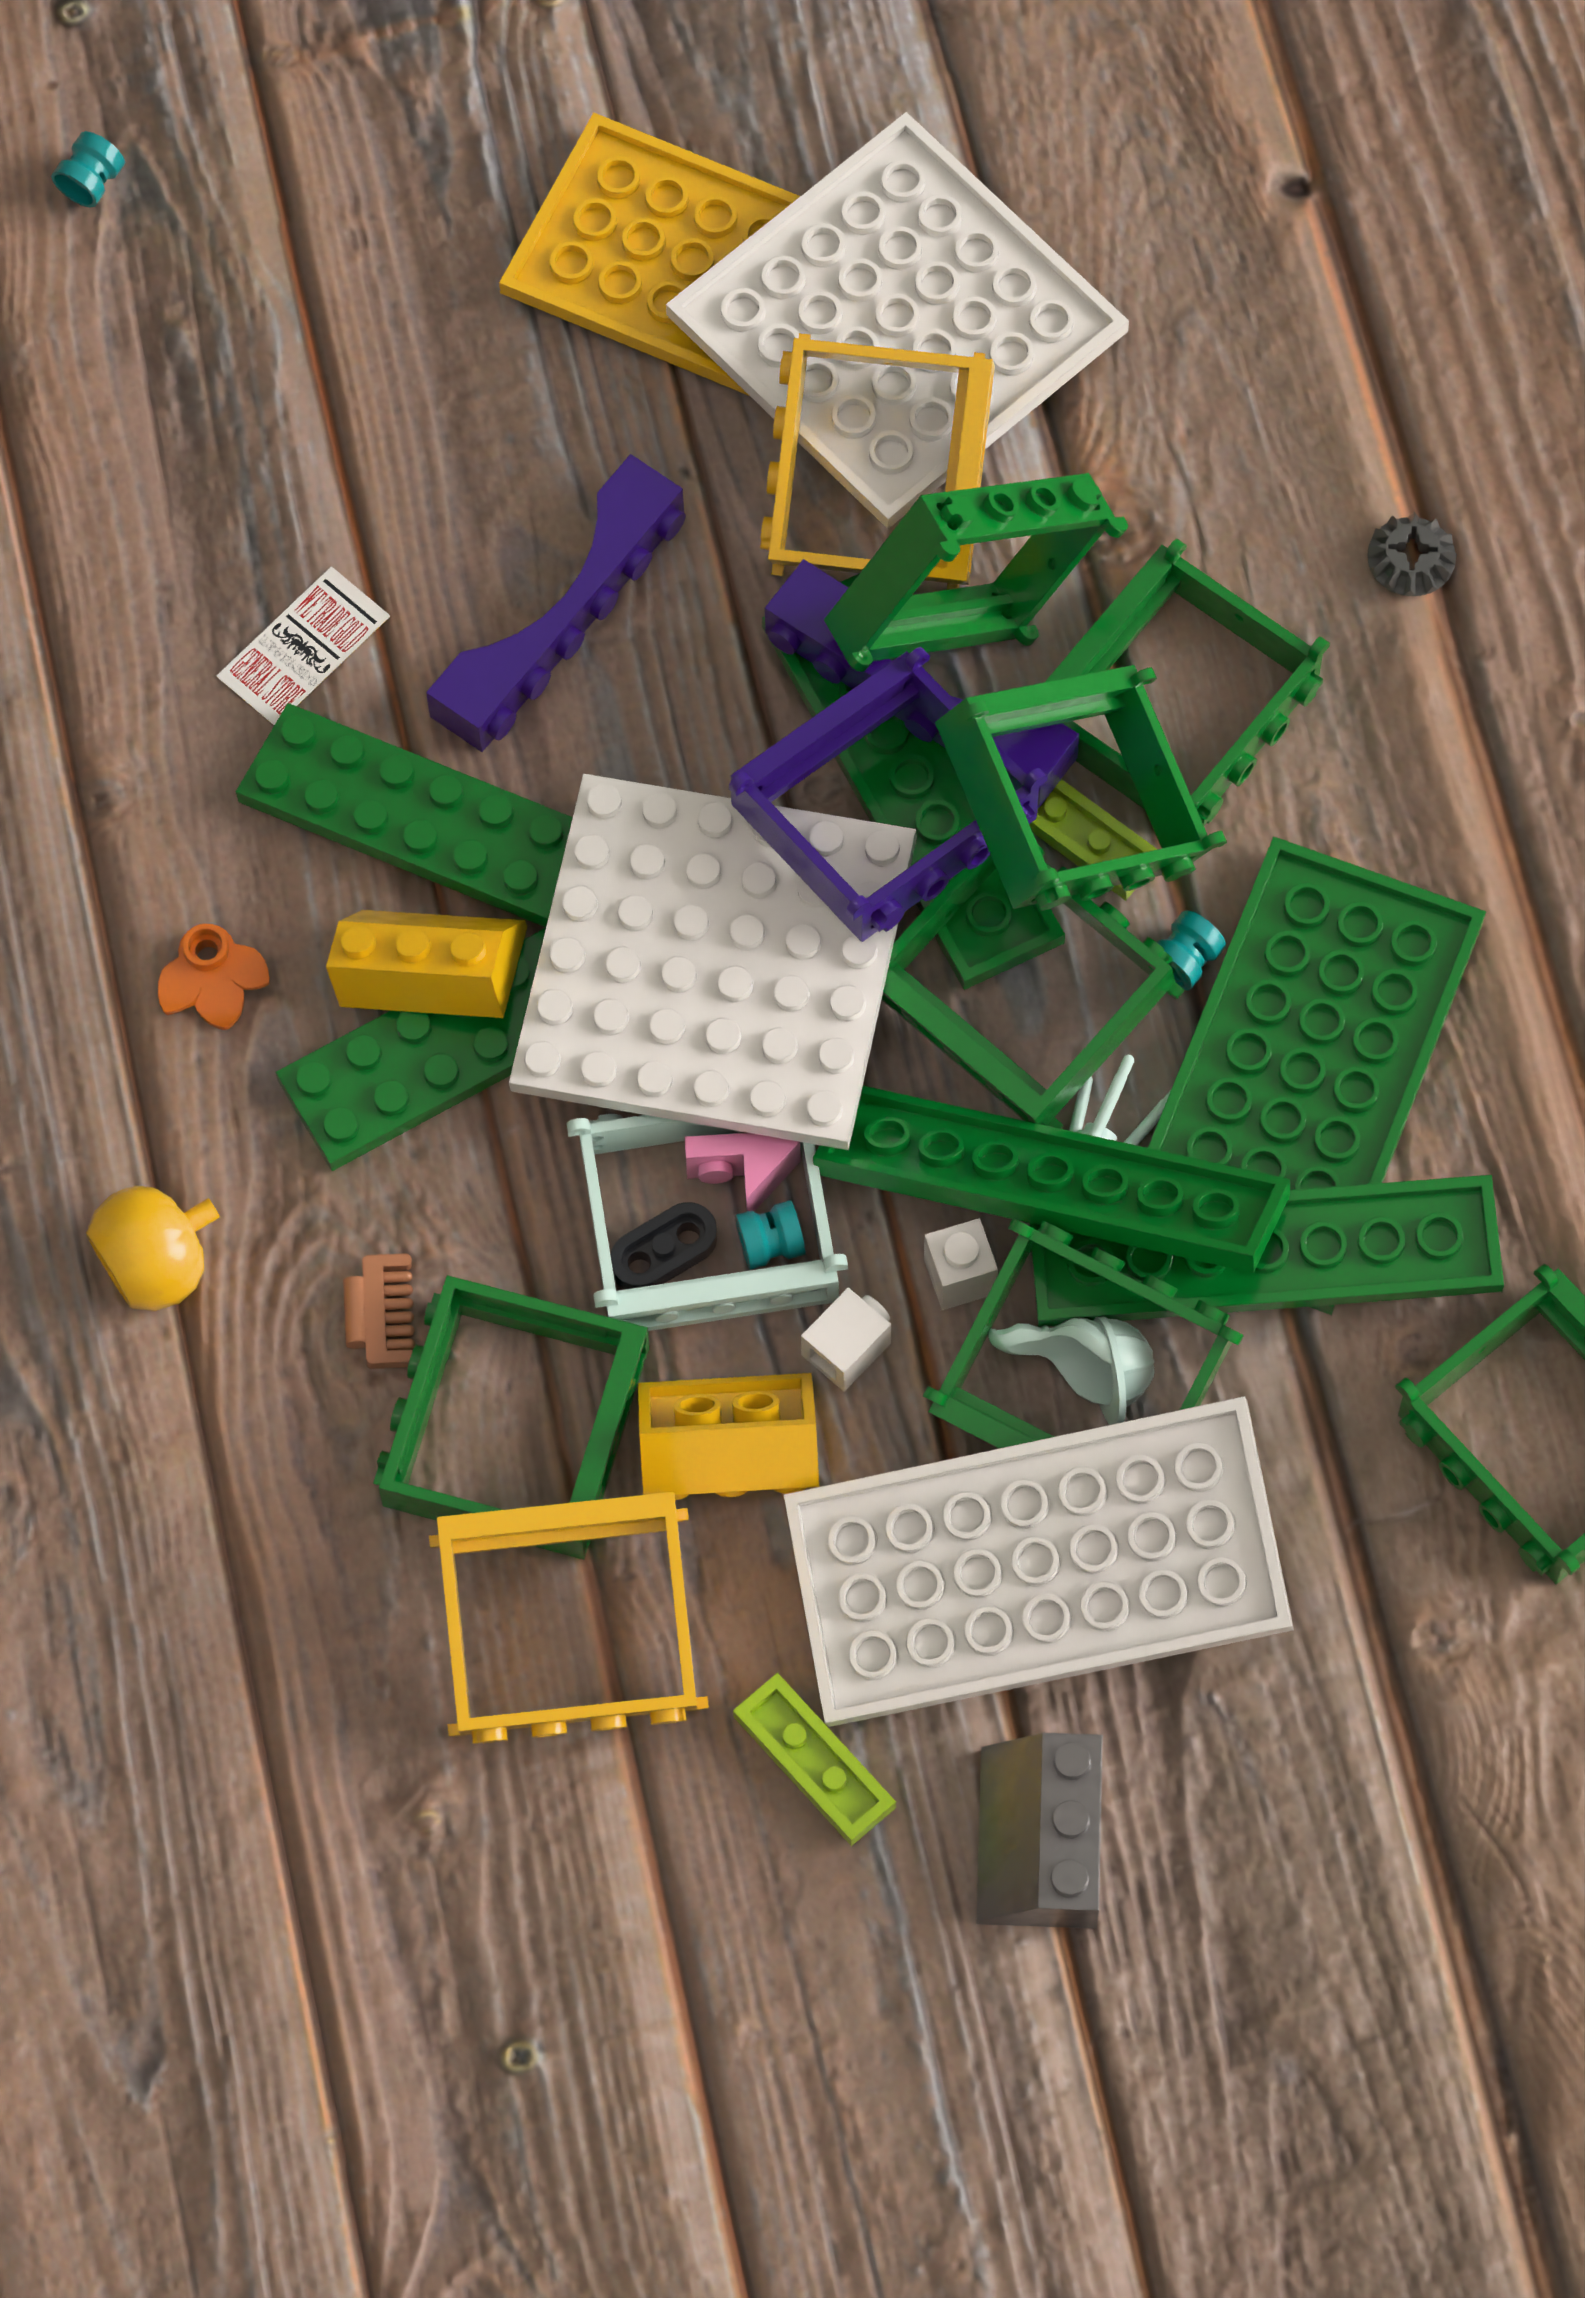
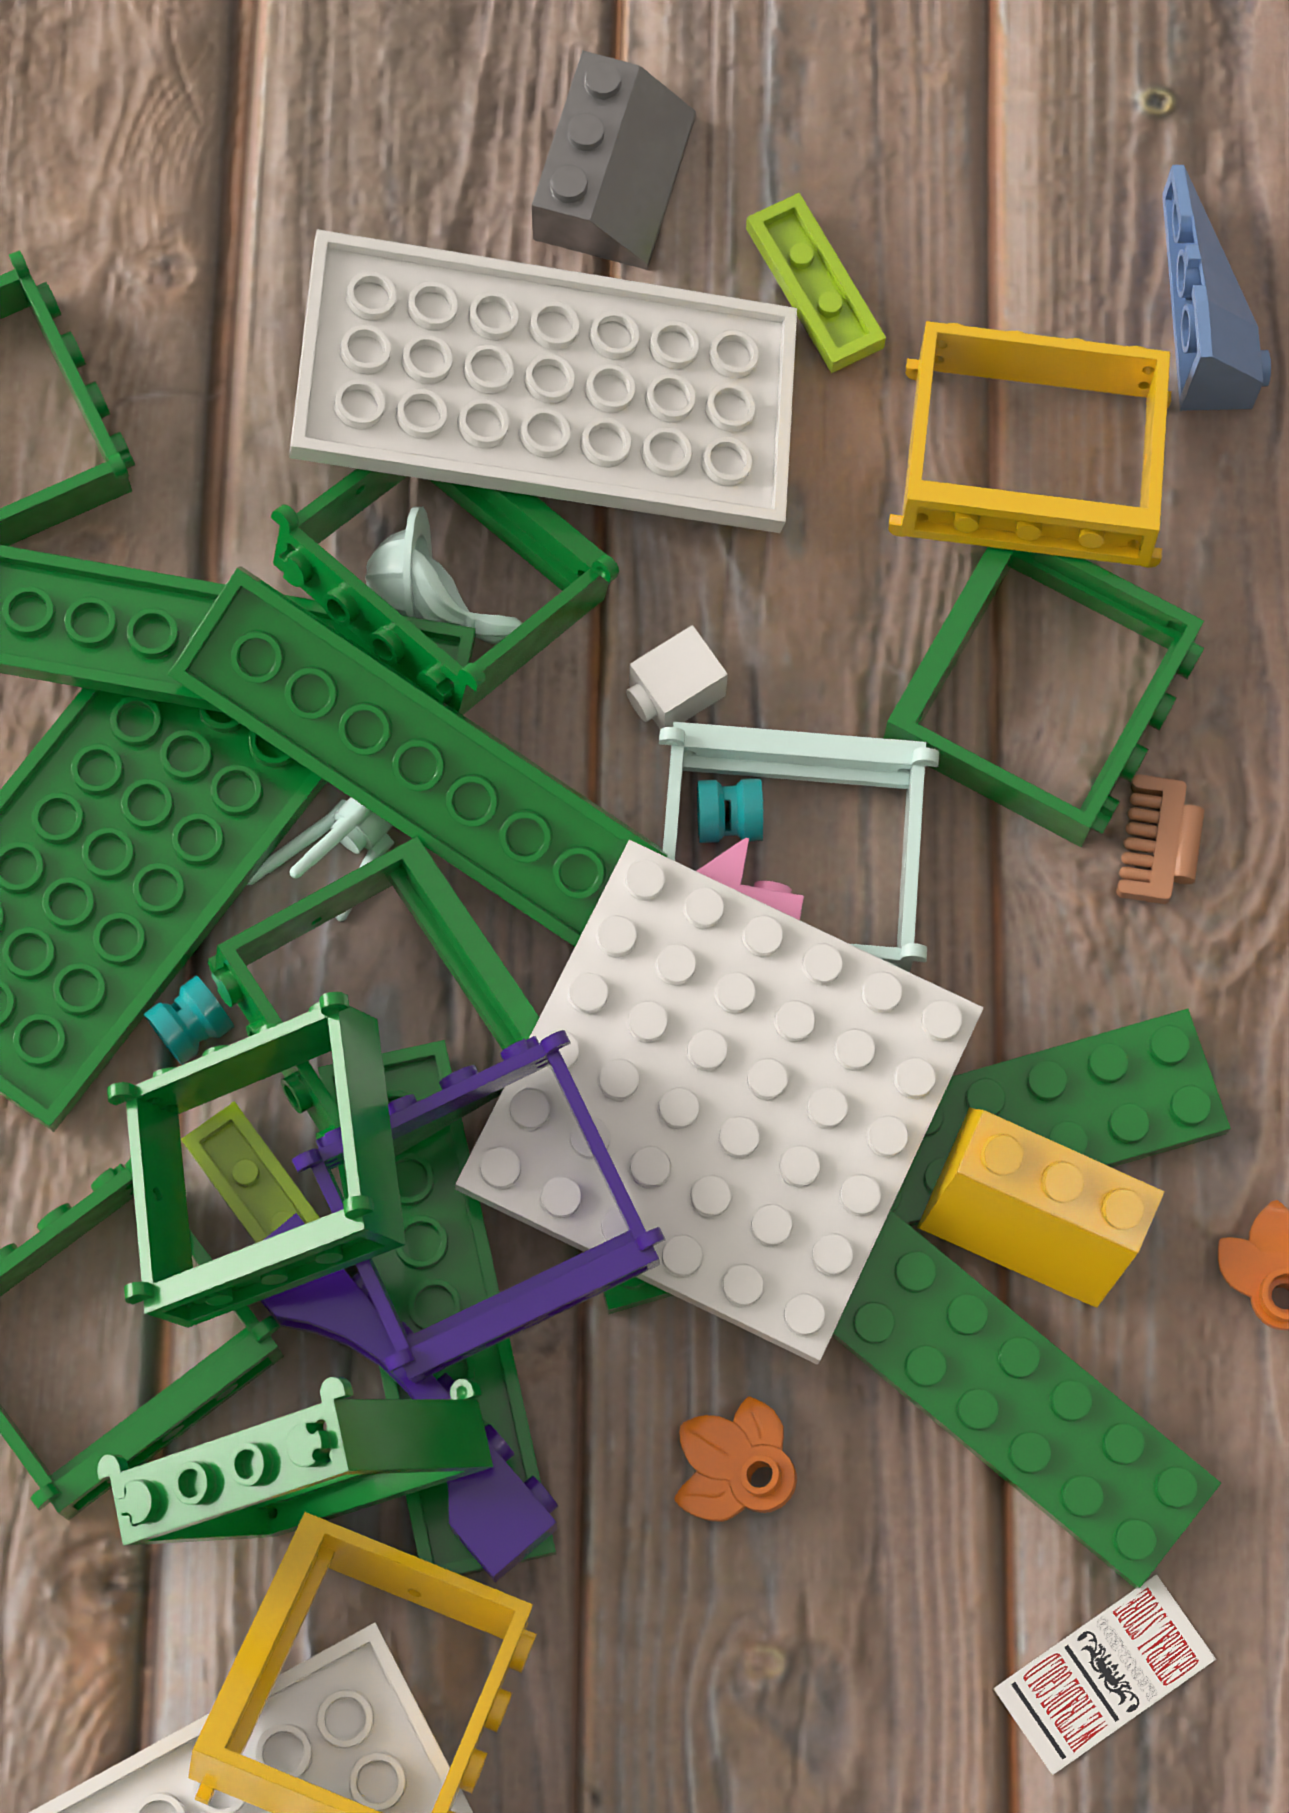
camera: 170 degrees left, 5 degrees up
(417, 1793) = (1212, 322): none -> medium blue wedge
(490, 683) = (899, 1546): dark purple arch -> none
(641, 727) = (728, 1456): none -> orange plate
(659, 1246) = (842, 825): black plate -> none
(728, 1435) = (824, 614): yellow slope -> none
(960, 1263) = (538, 722): white brick -> none

